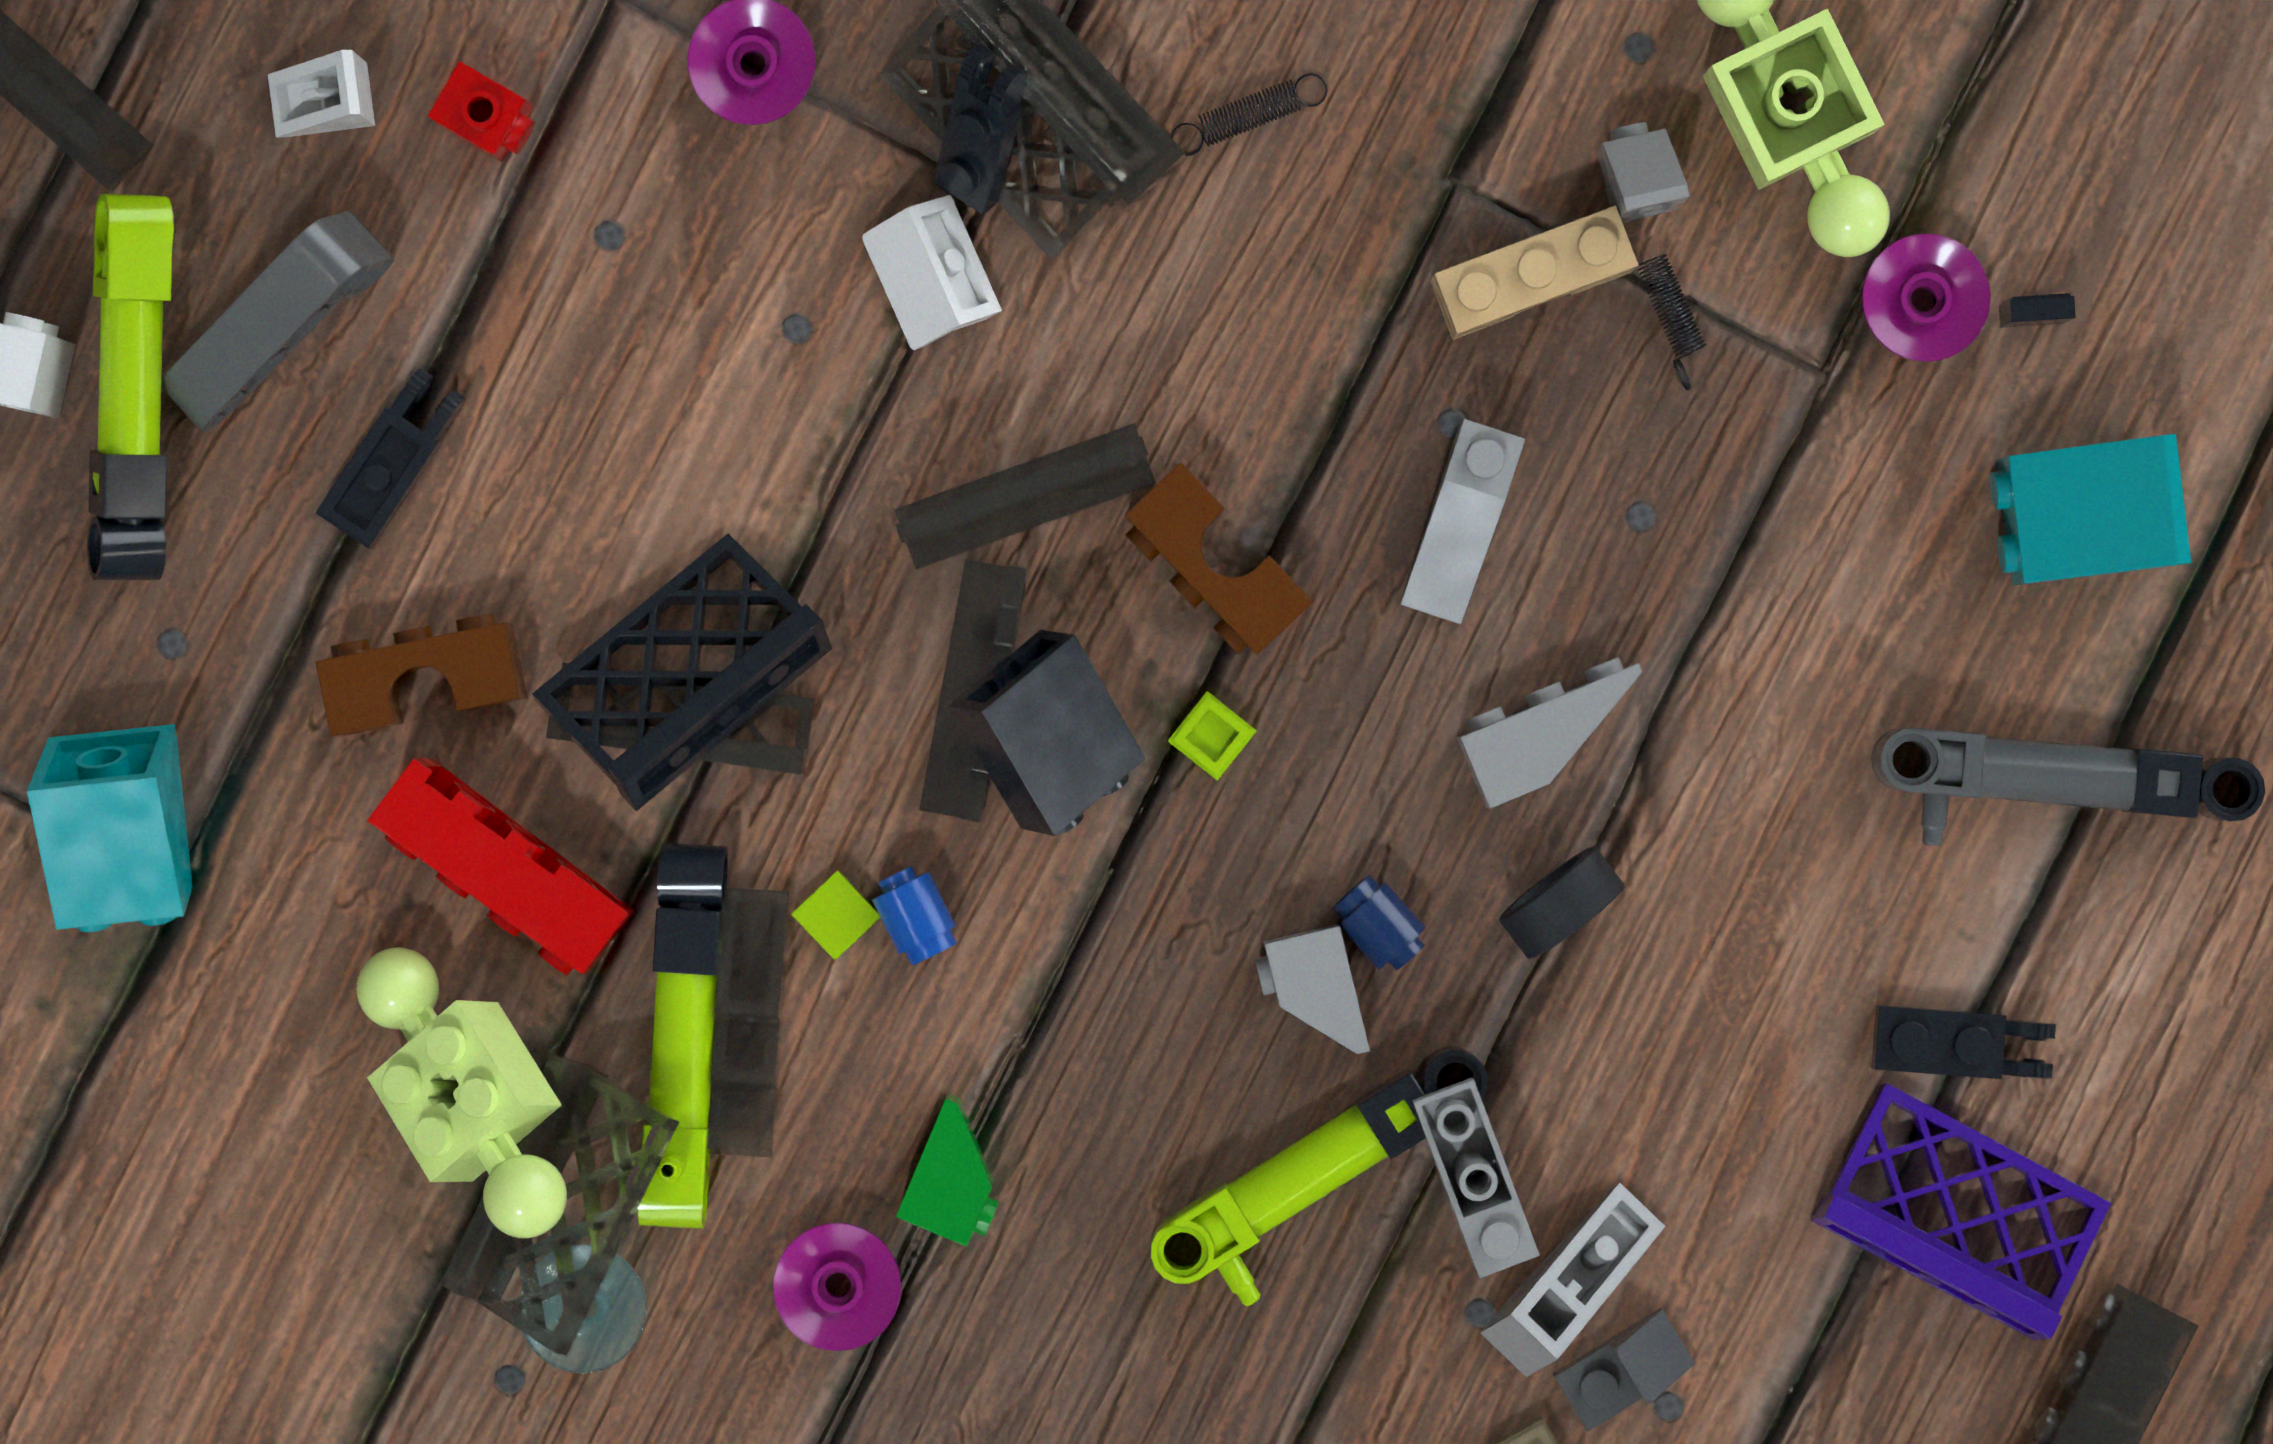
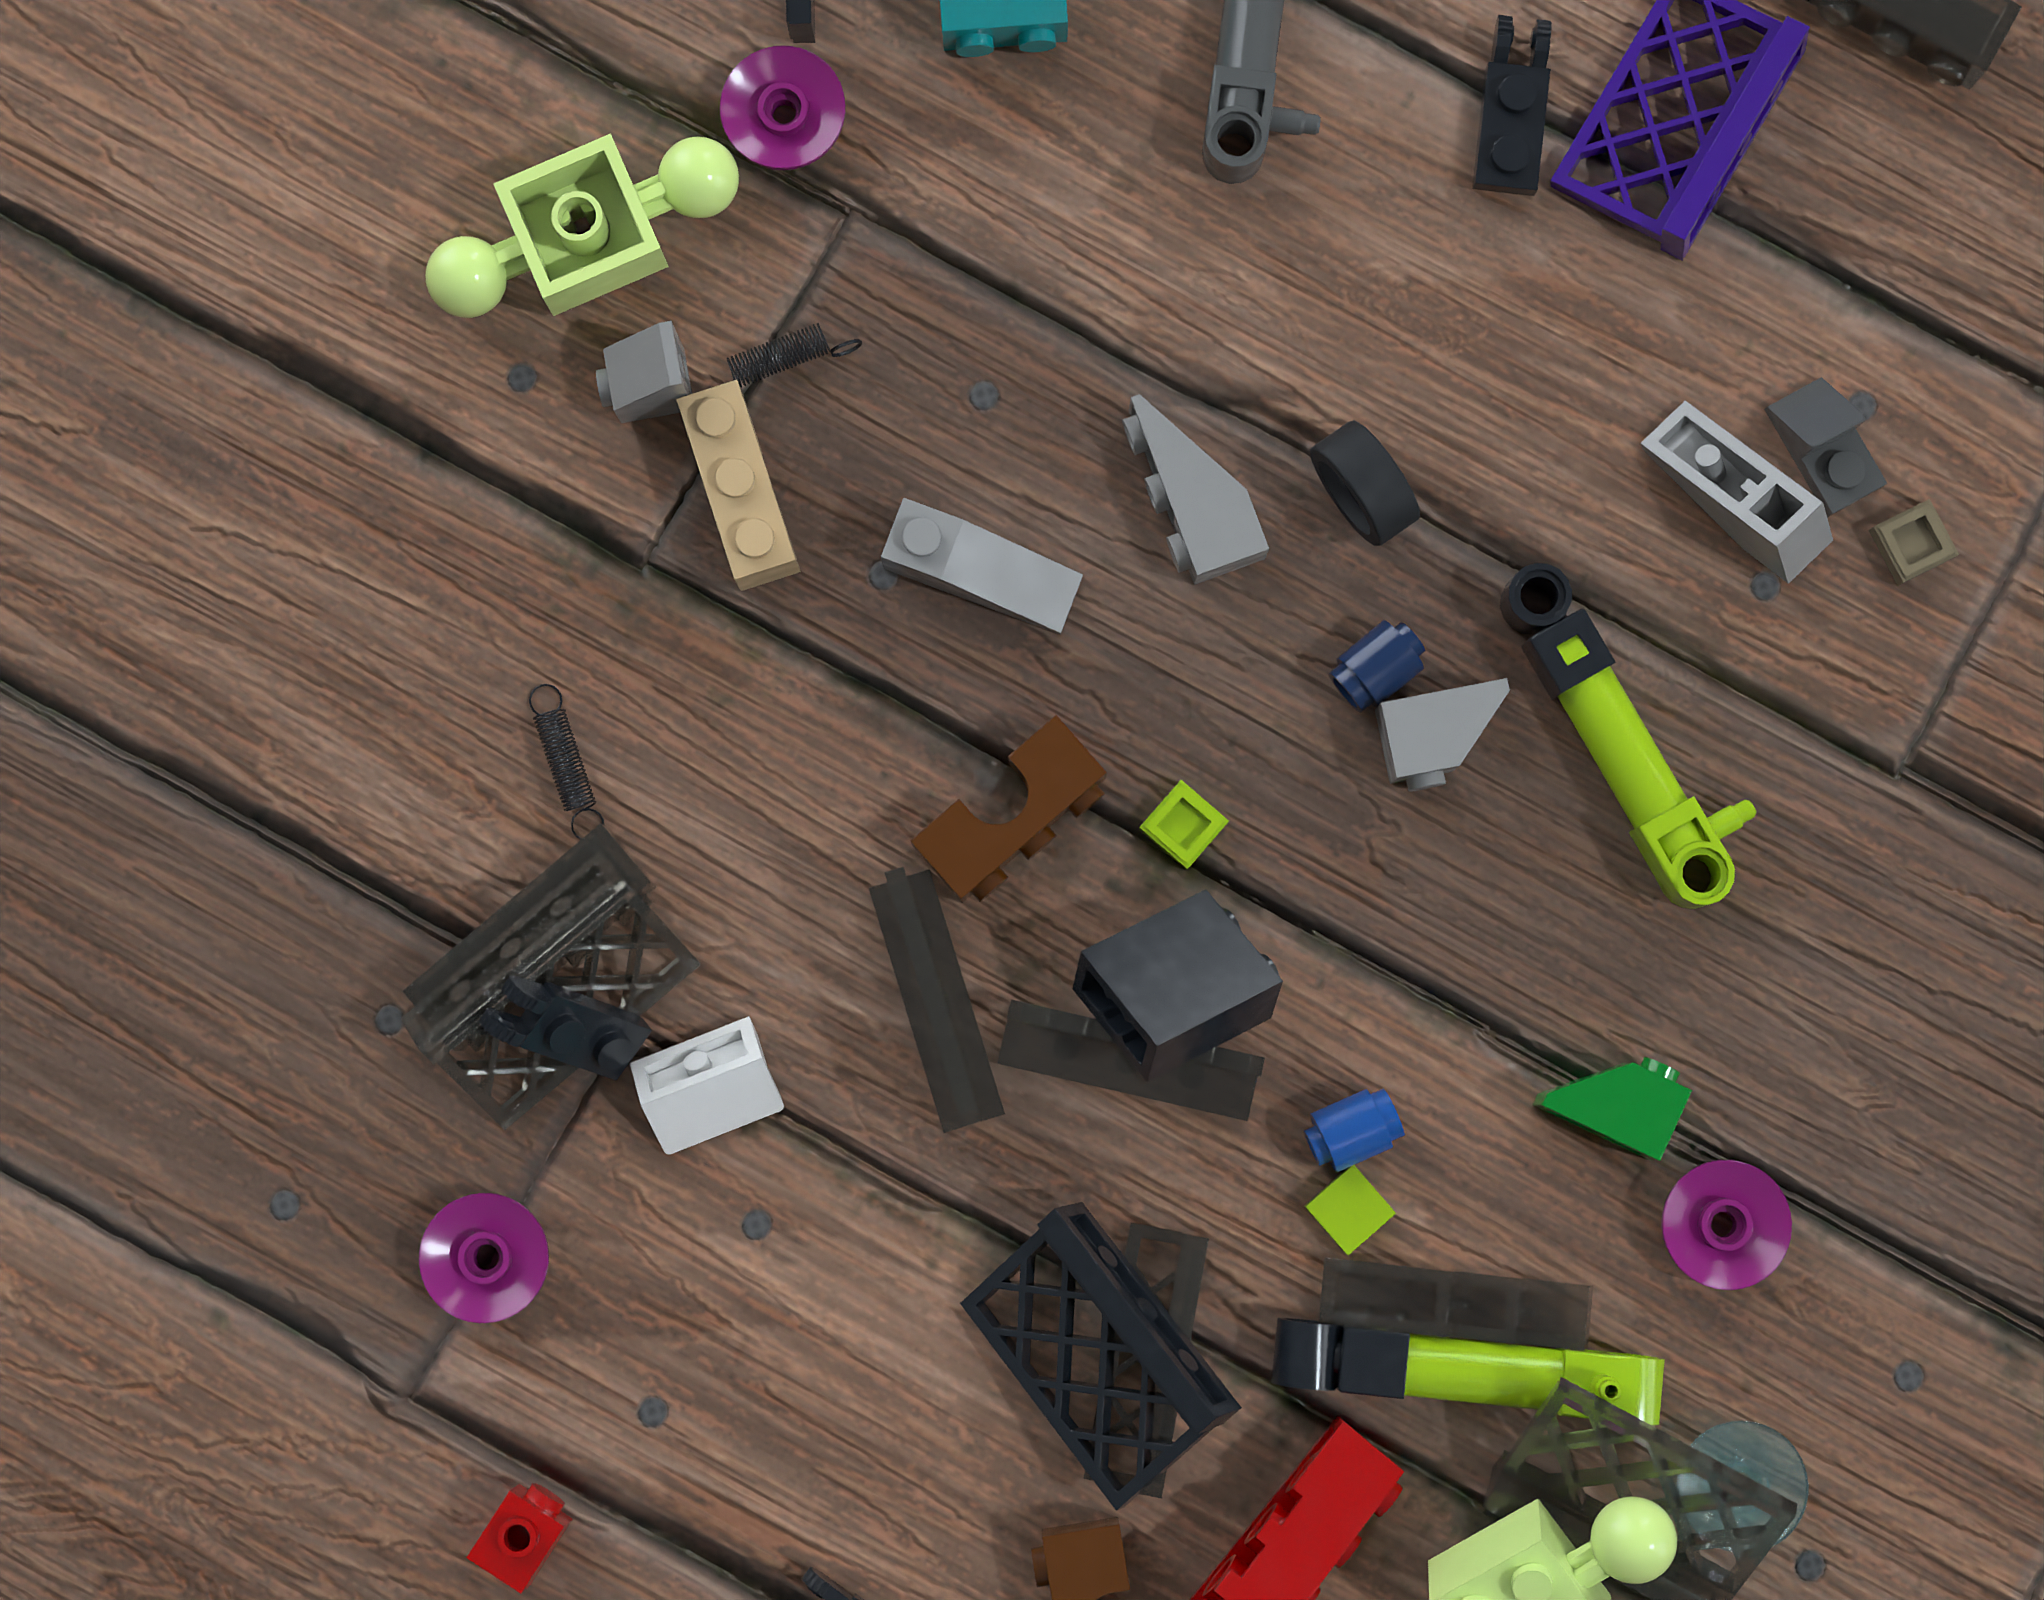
camera: 85 degrees left, 5 degrees down
(1475, 1178) = (1639, 578): light grey slope -> none

